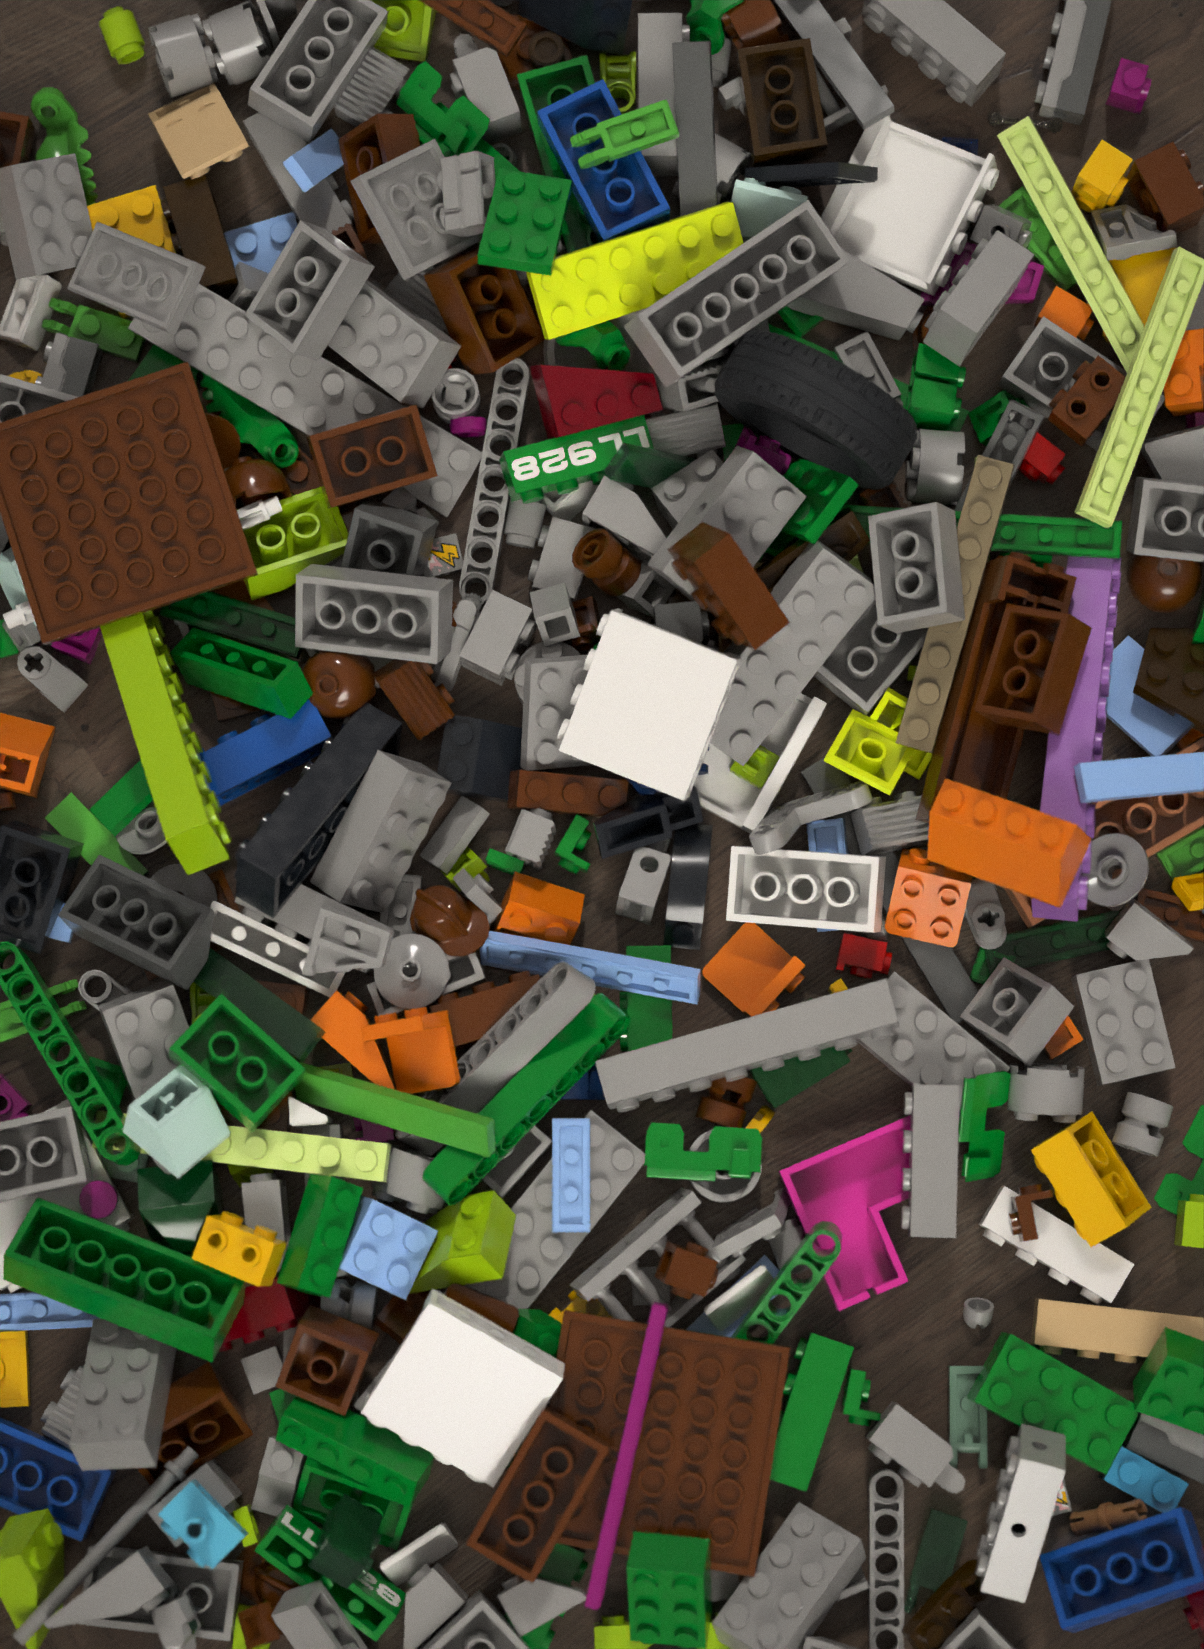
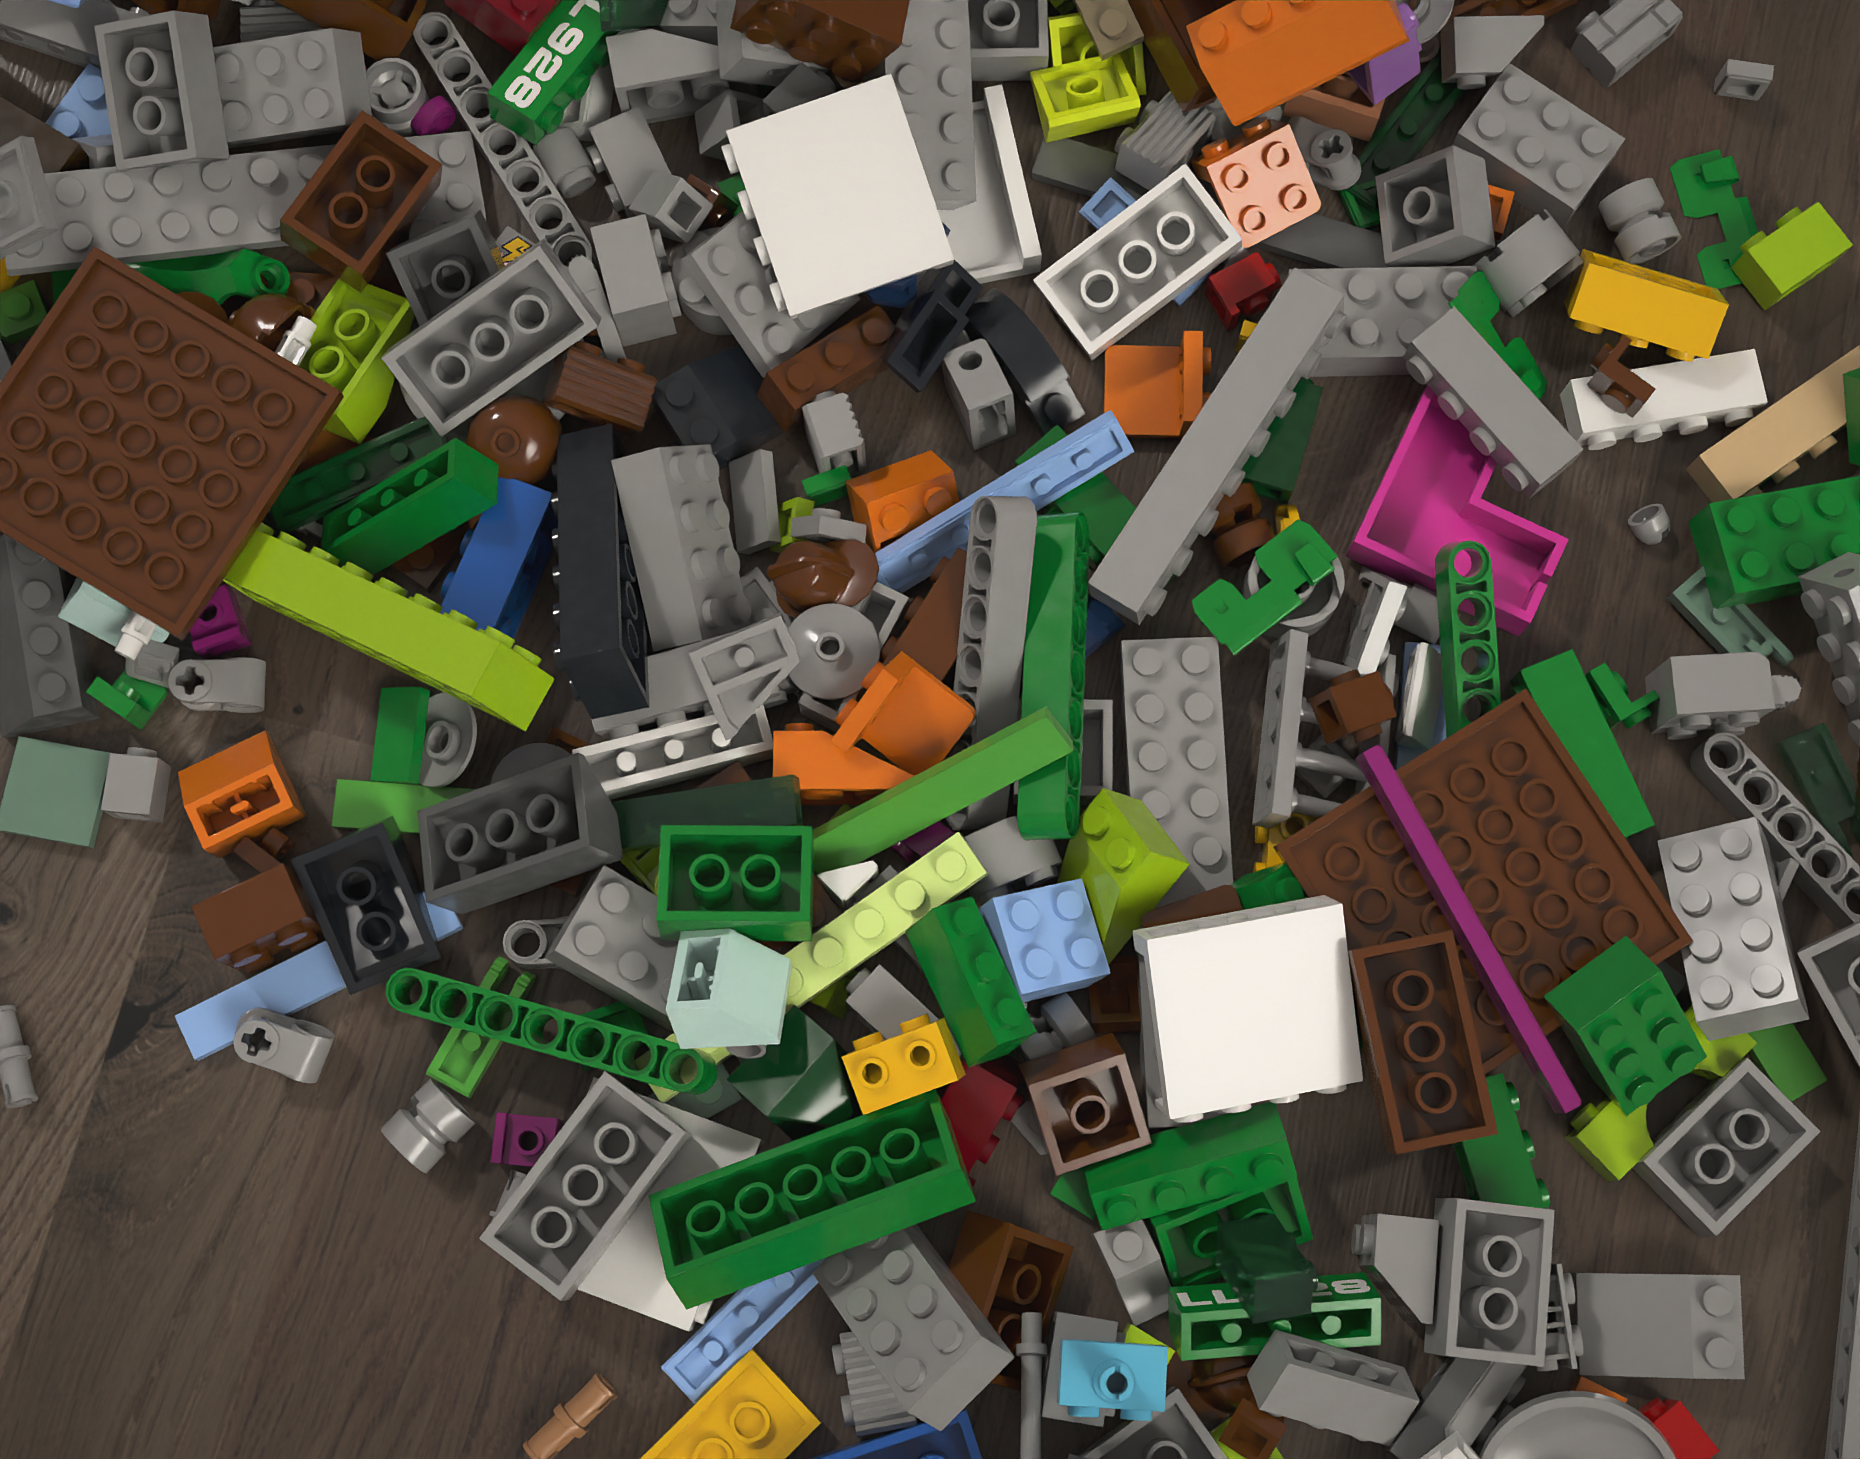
camera: 45 degrees left, 5 degrees down
(98, 1199) = (712, 1146): magenta tile -> none
(263, 1369) = (1025, 1176): light grey tile -> none
(421, 1551) = (1336, 1221): white slope -> none
(537, 1603) = (1504, 1162): light grey slope -> none
(570, 1174) = (1161, 714): light blue tile -> none
(574, 838) = (874, 408): green bracket -> none
(606, 562) = (678, 122): reddish brown wheel -> none
(757, 768) = (991, 204): lime tile -> none
(786, 818) = (1061, 223): light grey beam -> none

